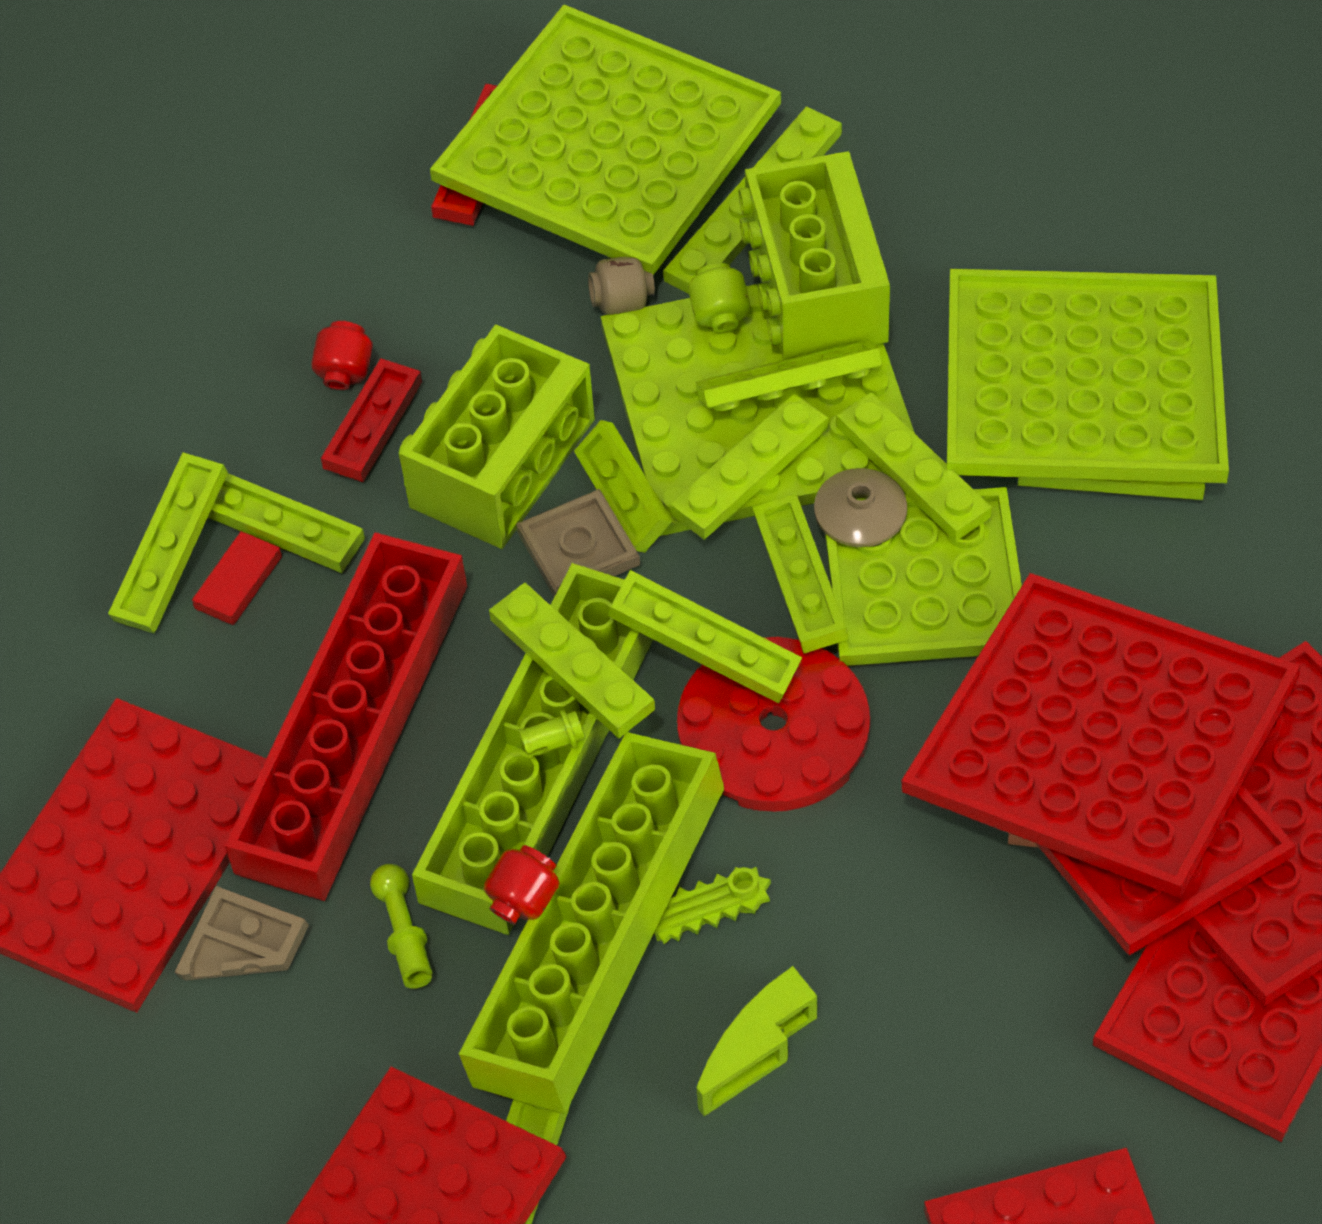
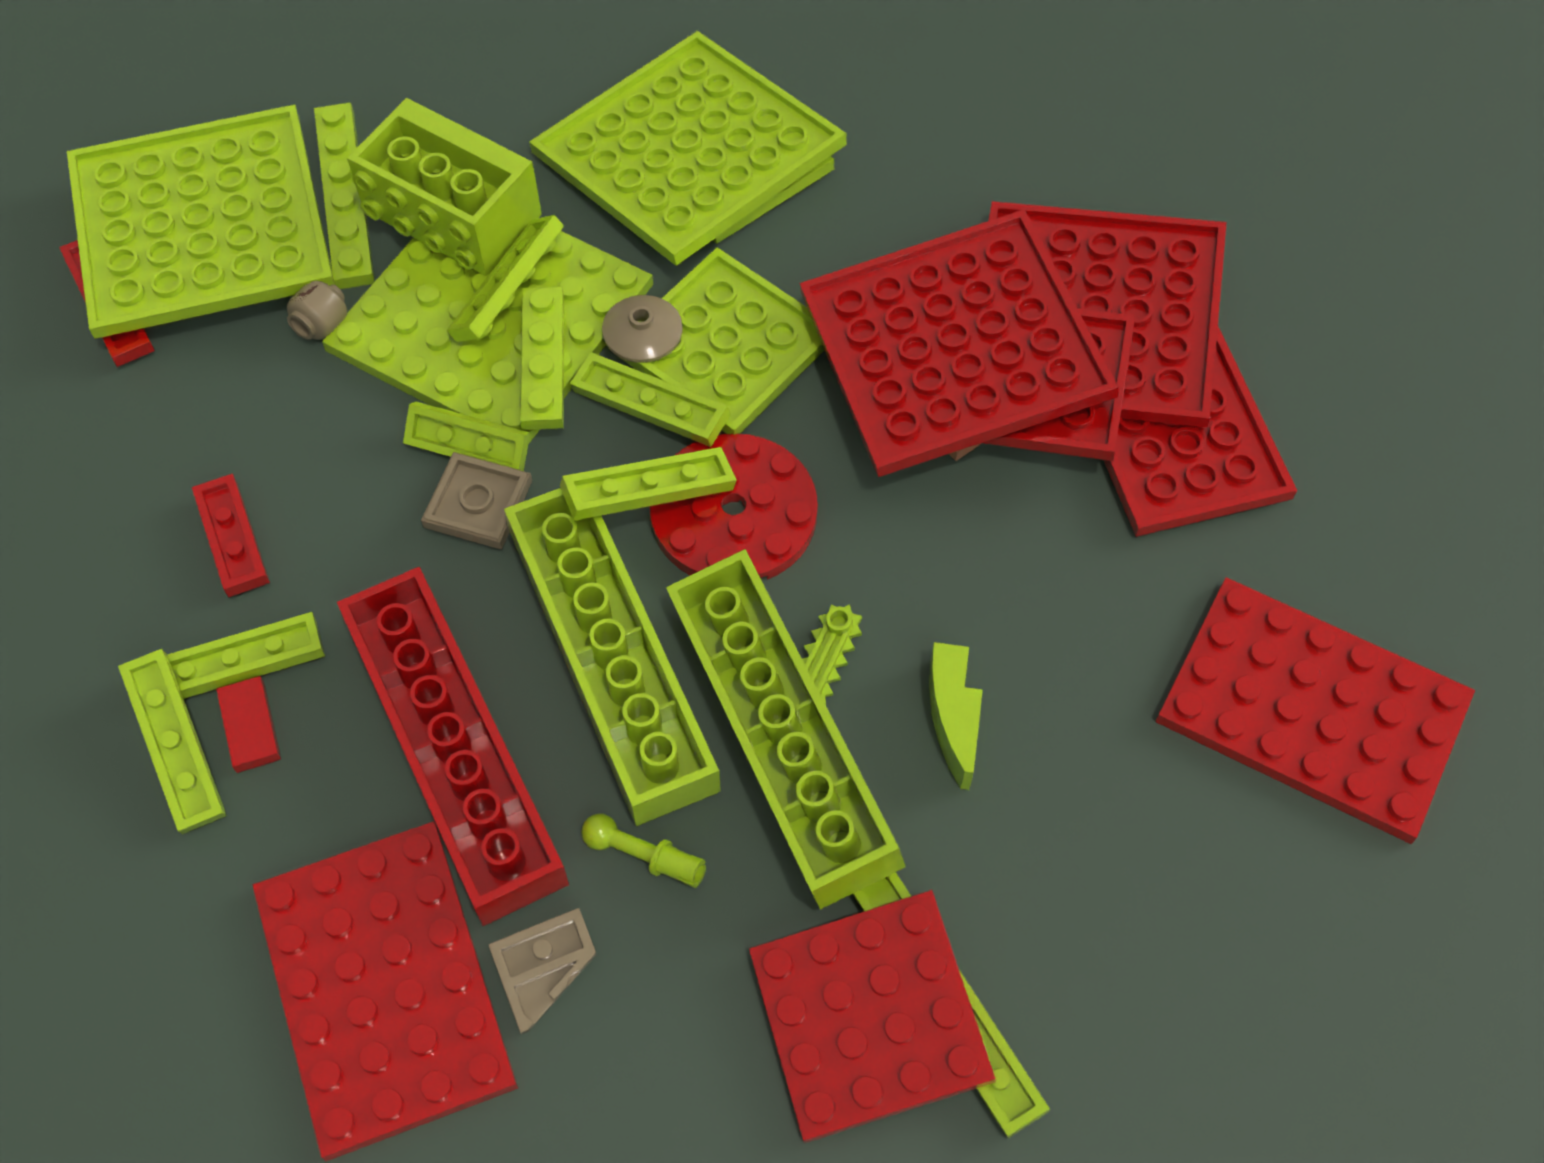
camera: 50 degrees left, 5 degrees up
(342, 355) = (157, 507): red head -> none
(497, 435) = (344, 471): lime brick -> none
(521, 884) = (723, 742): red head -> none
(552, 734) = (627, 627): lime pin -> none
(572, 660) = (579, 570): lime plate -> none
(719, 297) = (403, 263): lime head -> none
(913, 466) = (648, 276): lime plate -> none

